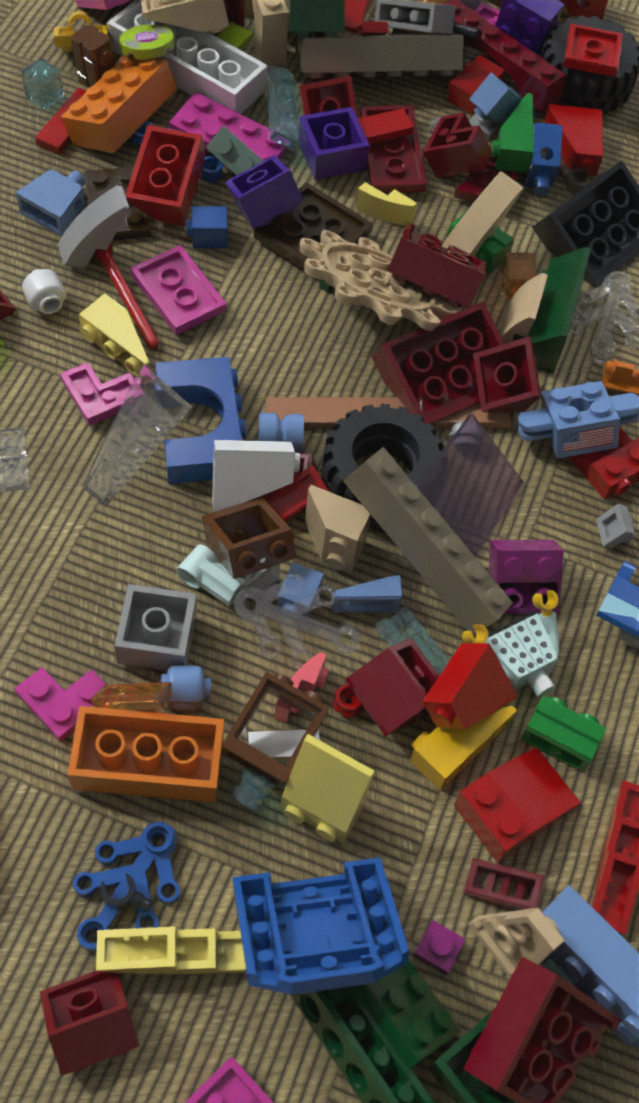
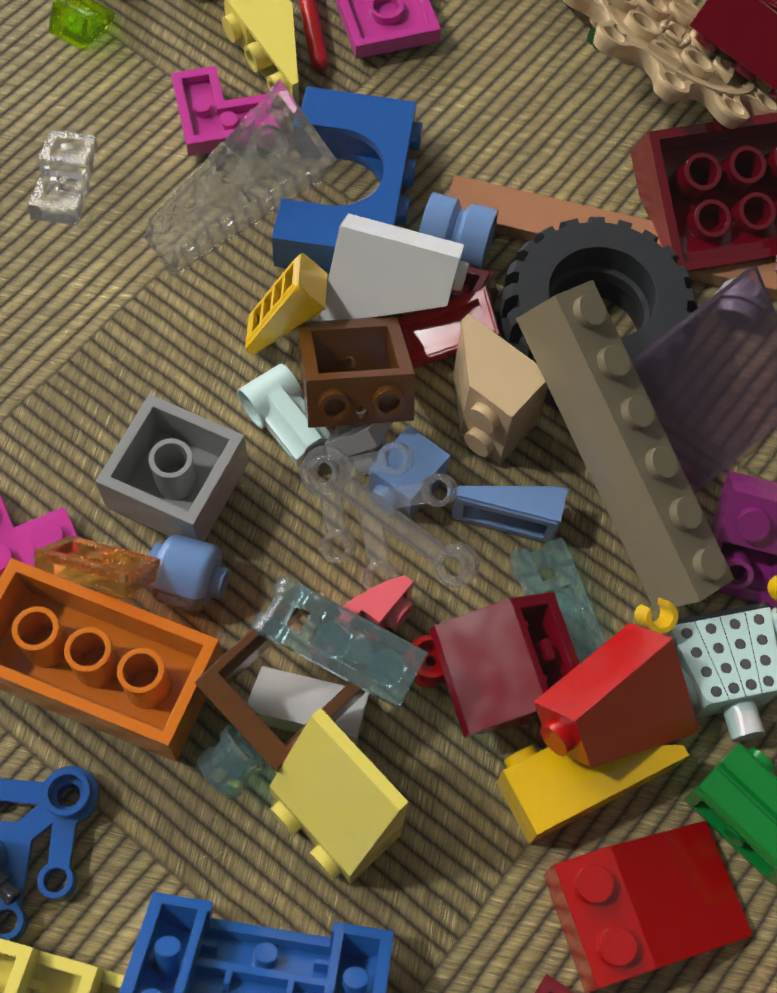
camera: 20 degrees right, 5 degrees up
(191, 507) = (287, 304): none -> yellow slope
(302, 696) = (342, 642): none -> clear light blue plate

